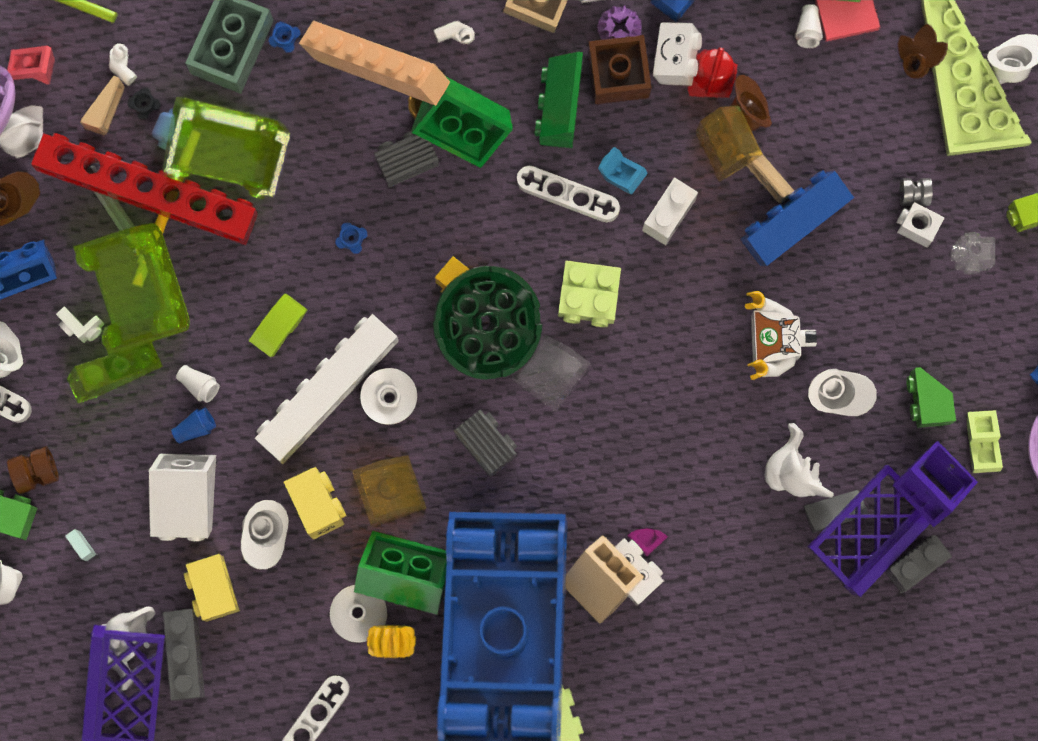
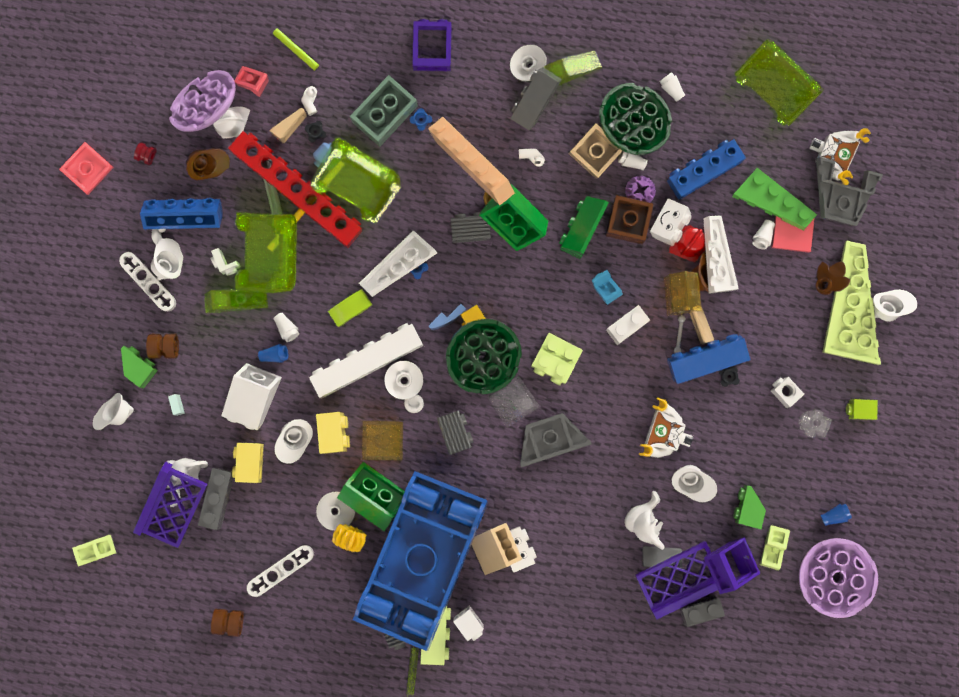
camera: 20 degrees right, 5 degrees up
(325, 236) = (402, 260): none -> white wing
(413, 296) = (442, 320): none -> medium blue slope
(415, 425) = (414, 404): none -> white tile
(569, 190) = (569, 286): white beam -> none
(603, 698) = (469, 624): none -> white brick
(622, 404) = (550, 438): none -> dark grey wing
(647, 539) = (535, 531): magenta tile -> none
(740, 179) = (681, 319): none -> light grey hinge
(760, 80) = (719, 262): none -> white wing
(837, 225) = (734, 376): none -> black plate
(916, 191) = (792, 369): flat silver wheel -> none

